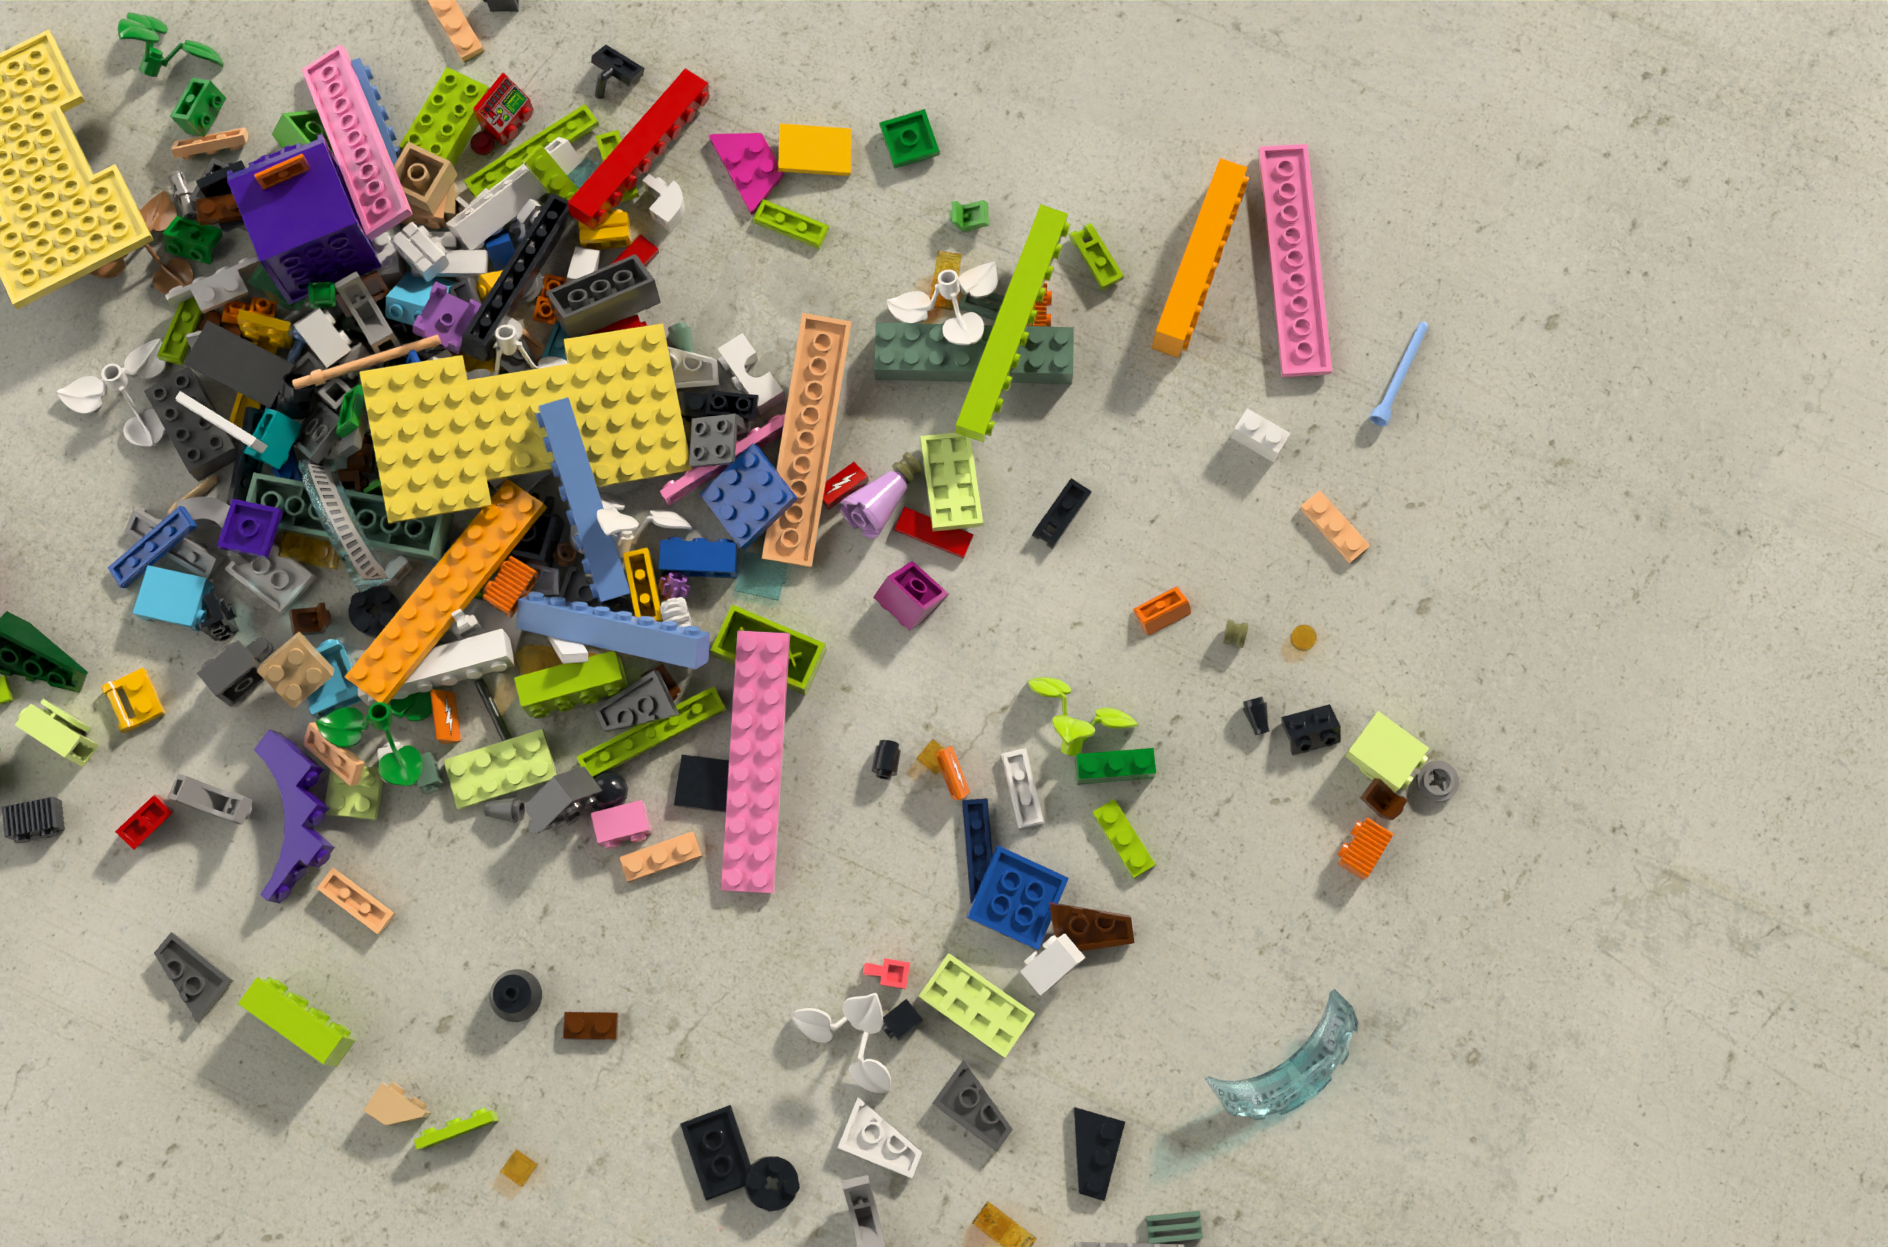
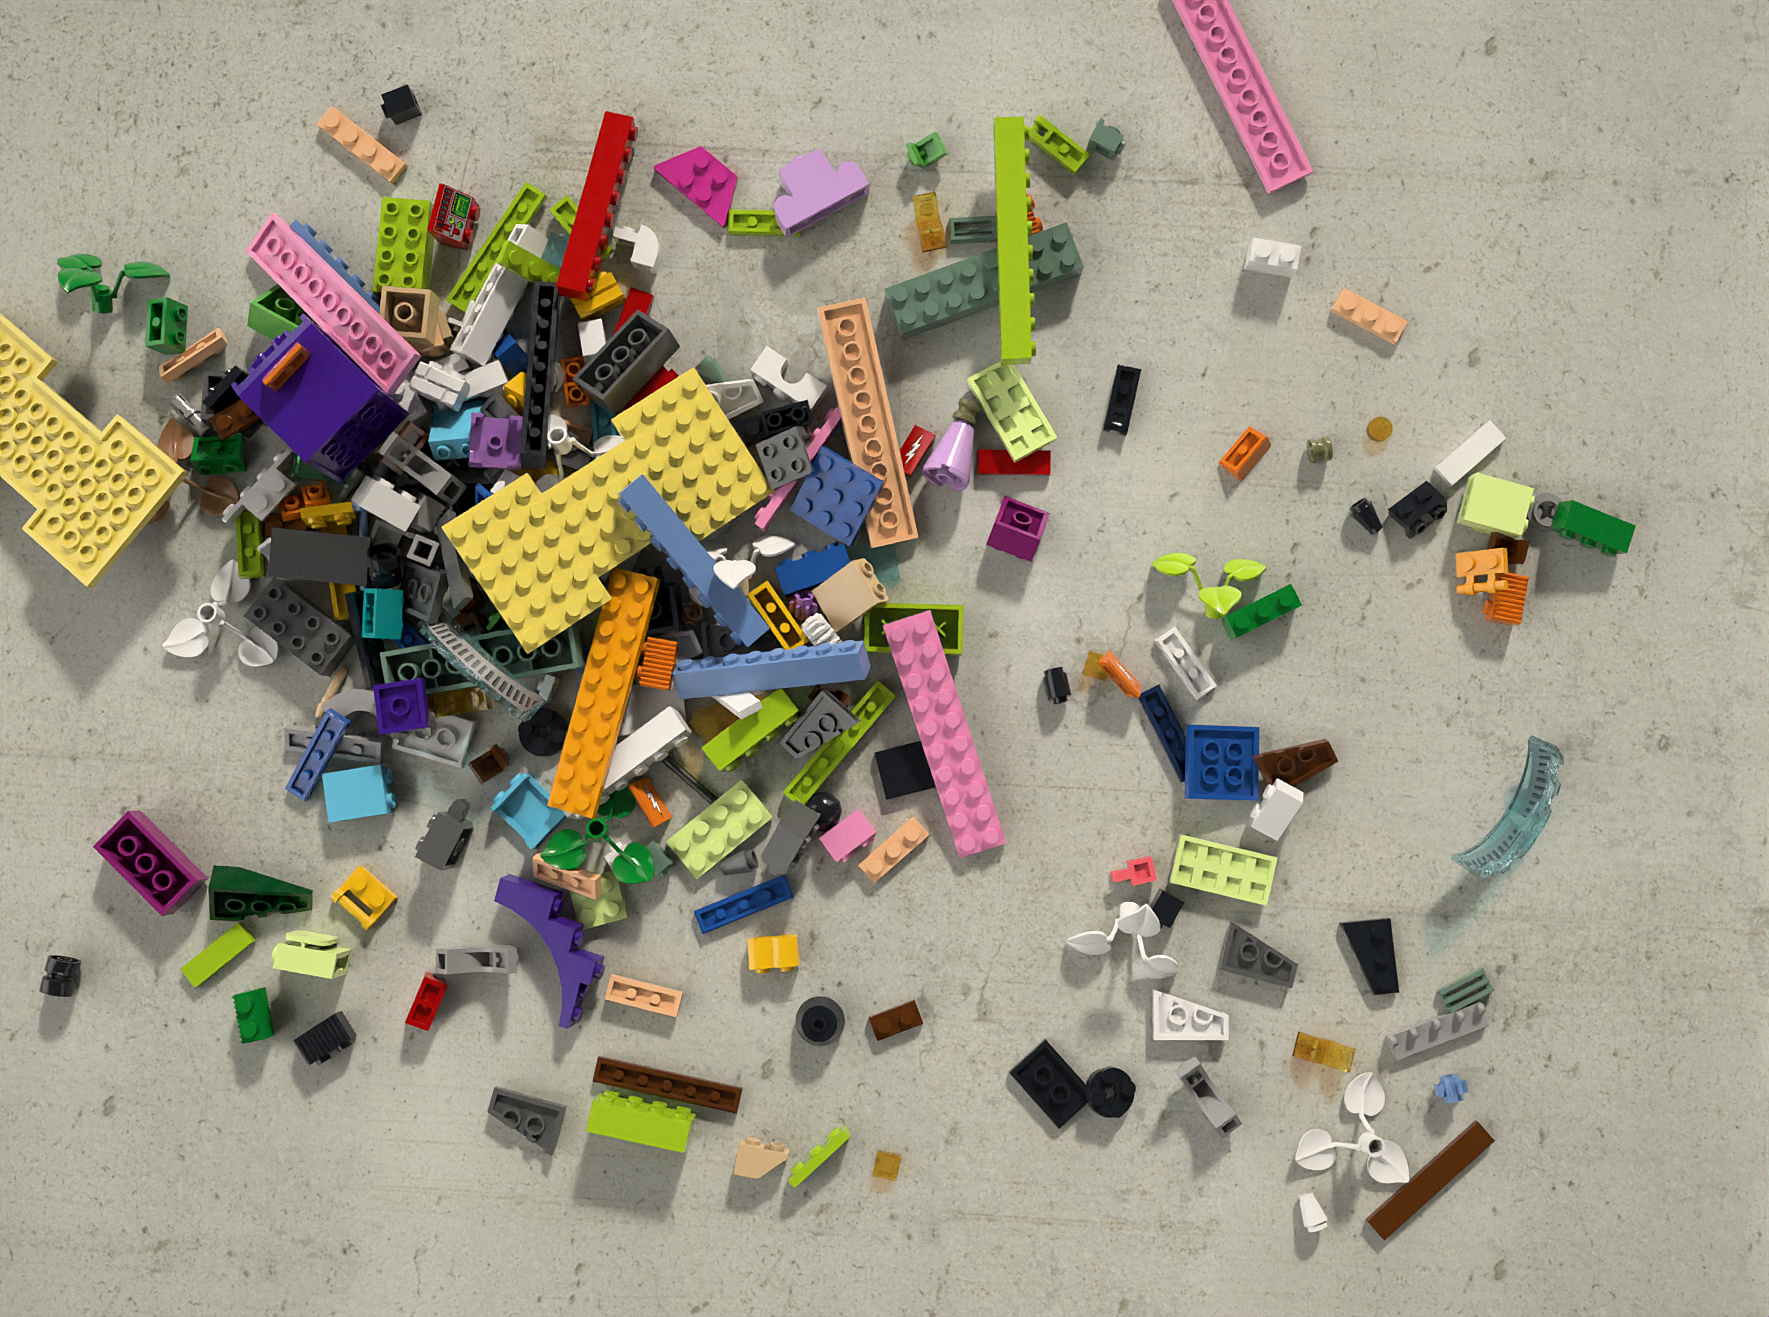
camera: 15 degrees left, 10 degrees up
(220, 422) = (330, 620): white tile -> none
(222, 623) = (411, 792): black bracket -> none
(295, 670) = (500, 817): tan brick -> none
(320, 376) = (401, 542): light nougat bar -> none
(321, 295) = (370, 464): green piece -> none
(340, 999) = (667, 1084): none -> reddish brown tile
(350, 411) = (447, 564): green tile -> none
(465, 625) = (632, 714): white plate -> none
(482, 143) = (446, 256): dark red plate -> none
(492, 851) = (743, 904): none -> blue tile
(500, 909) = (773, 952): none -> yellow brick
(526, 217) = (521, 310): white plate -> none
(614, 65) = (538, 133): black plate -> none
(720, 591) = (850, 594): none -> tan panel
(814, 149) = (757, 143): yellow tile -> none
(850, 212) = (816, 191): none -> lavender brick
(909, 138) = (840, 98): green plate -> none
(964, 329) = (969, 265): white plant -> none
(1123, 838) = (1291, 672): lime plate -> none
(1144, 269) = (1106, 140): none -> sand green brick
(1201, 258) = (1155, 109): light orange brick -> none
(1351, 803) = (1481, 563): none -> light orange plate
(1382, 413) = (1372, 193): light blue piece -> none
(1383, 695) = (1469, 453): none -> white tile
(1476, 812) = (1592, 528): none -> green brick

